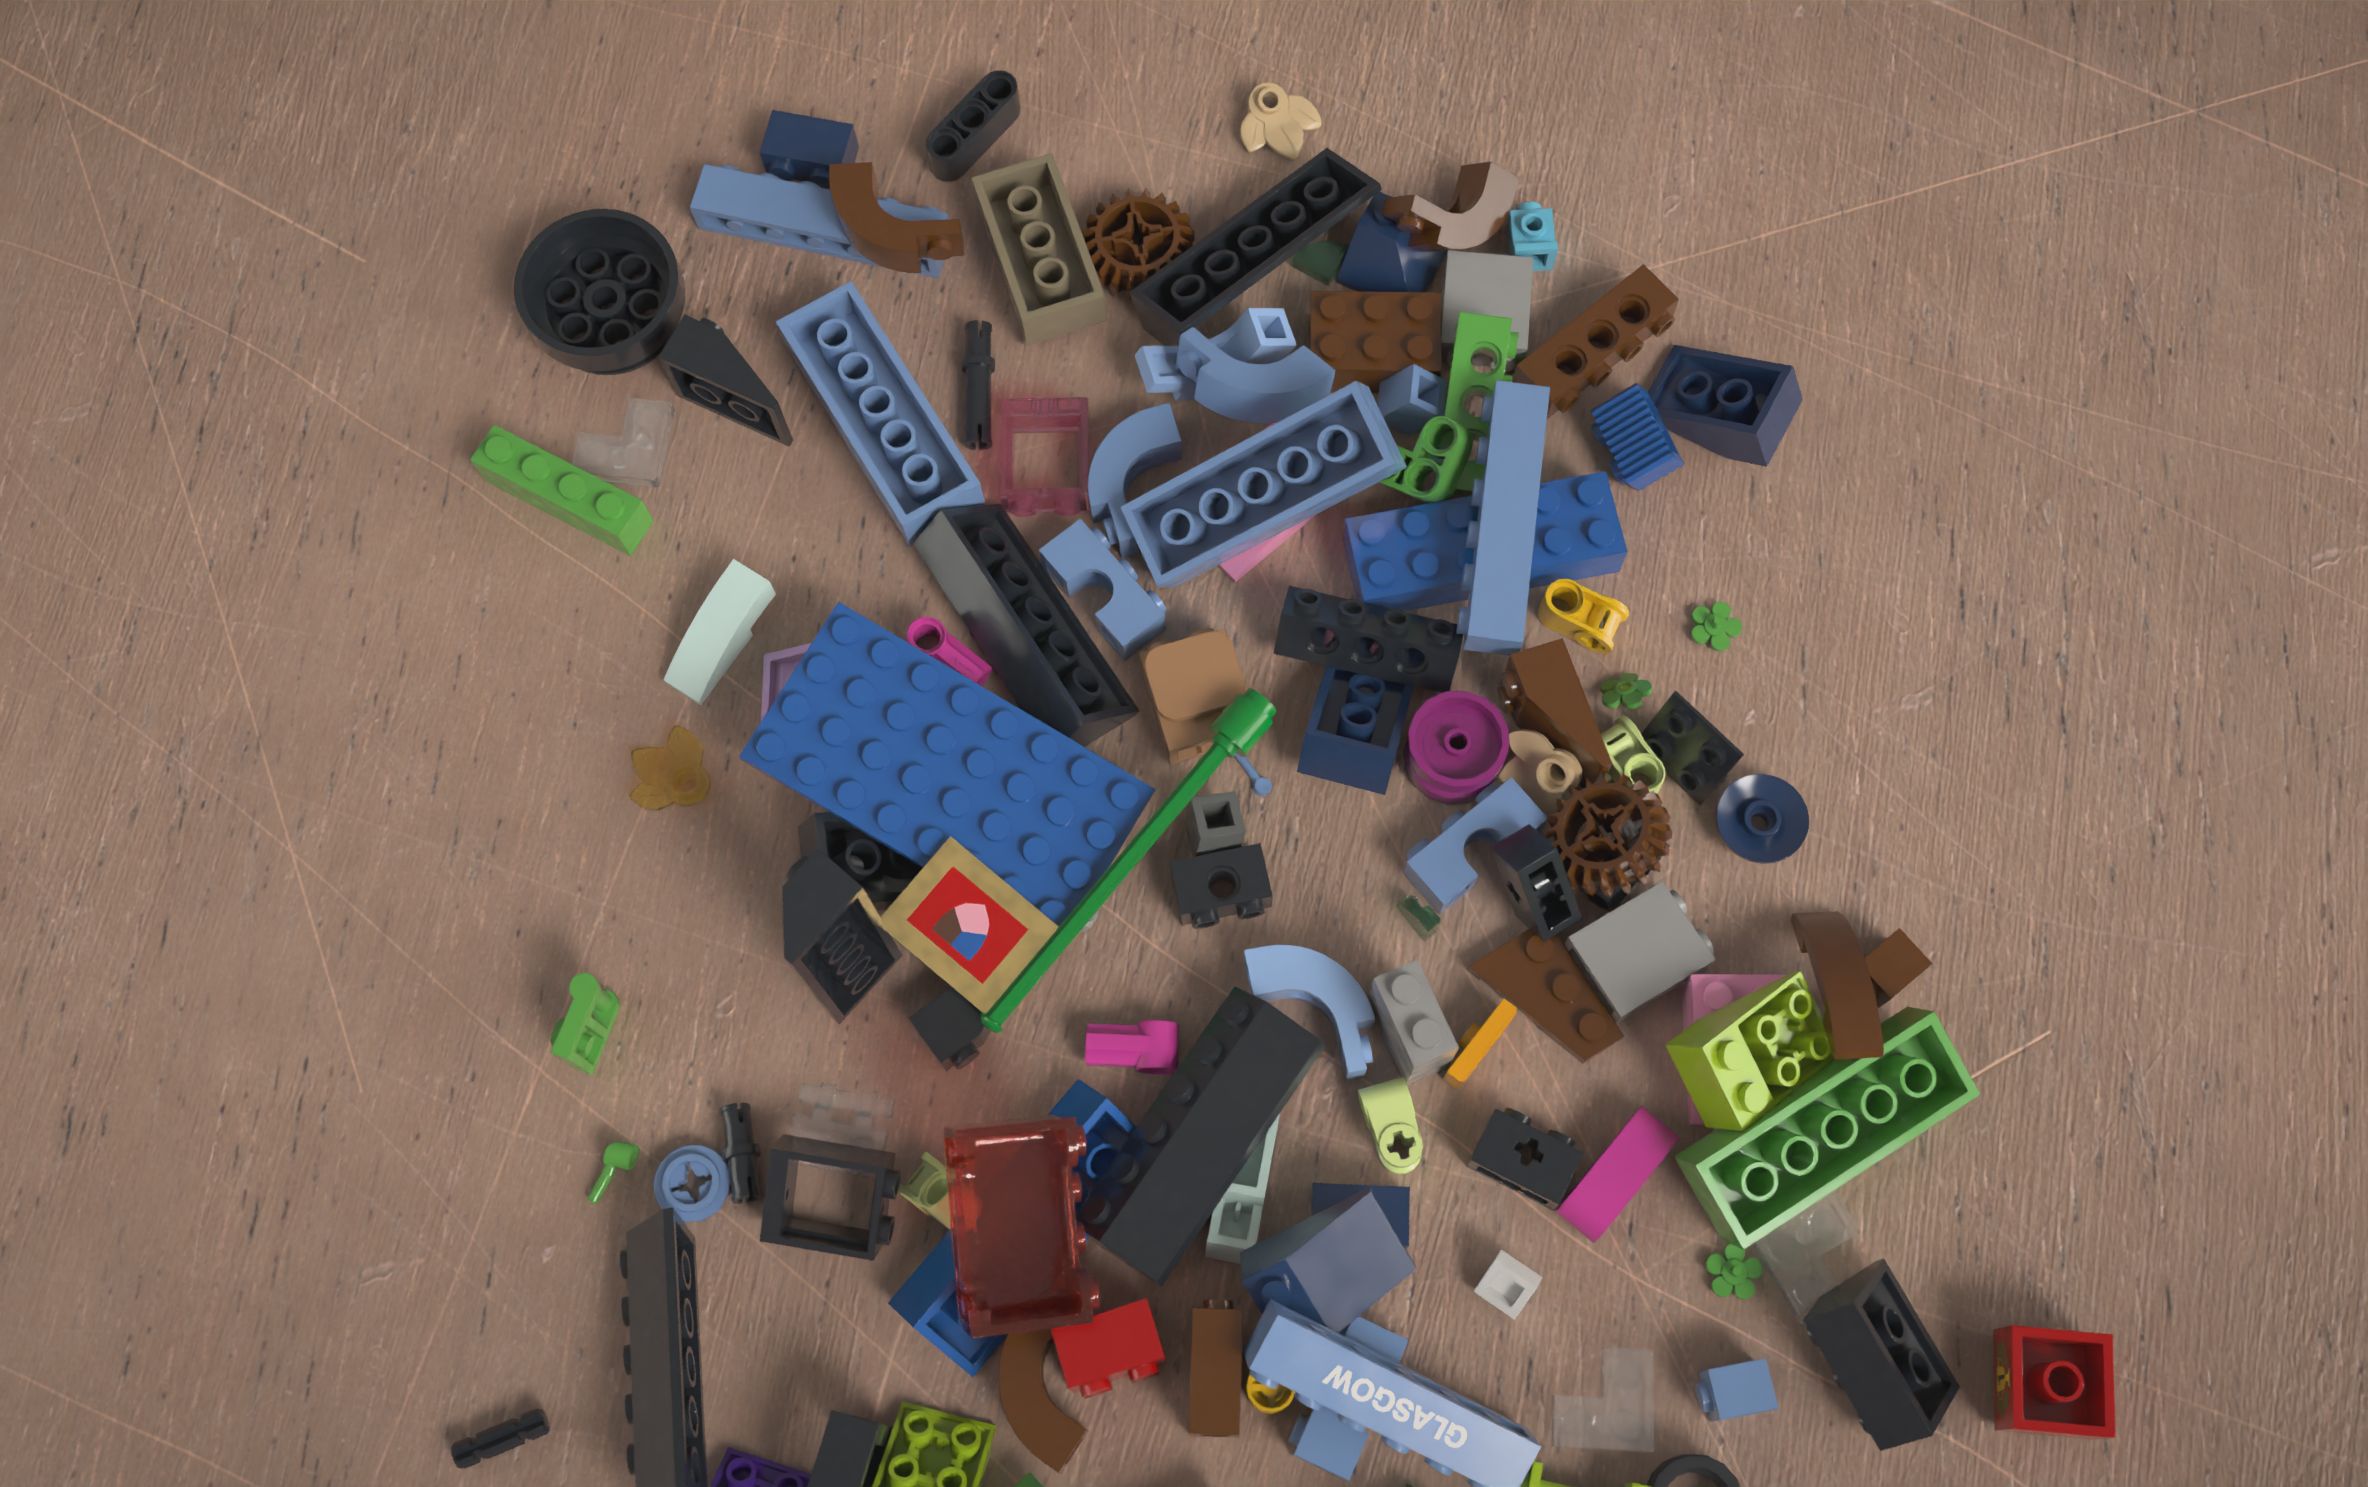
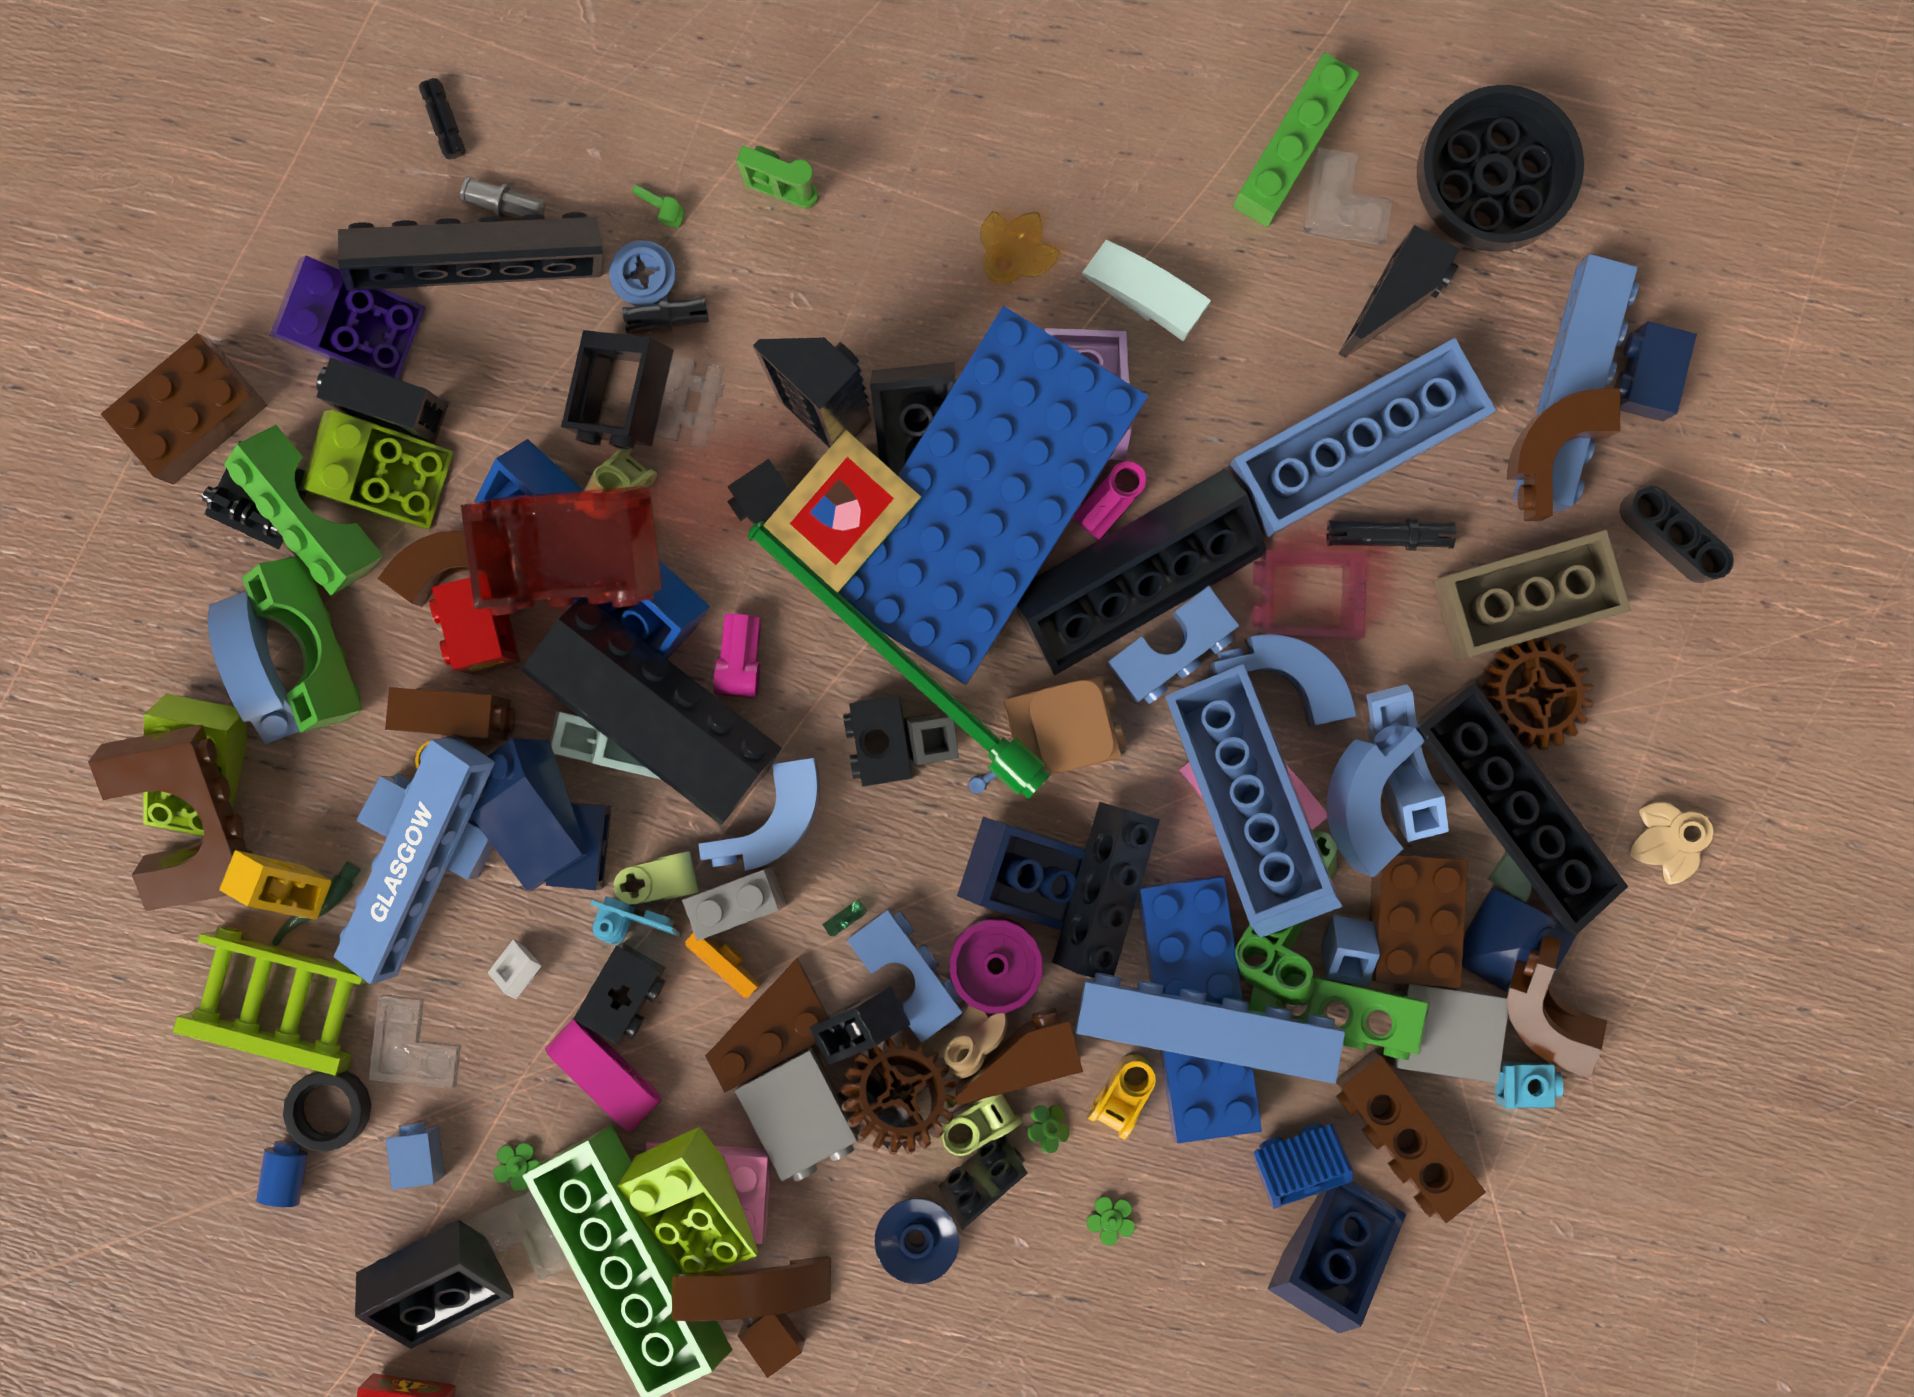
camera: 95 degrees right, 15 degrees up
(601, 1357) = (499, 199): none -> light grey axle
(1437, 1160) = (615, 919): none -> medium azure hinge

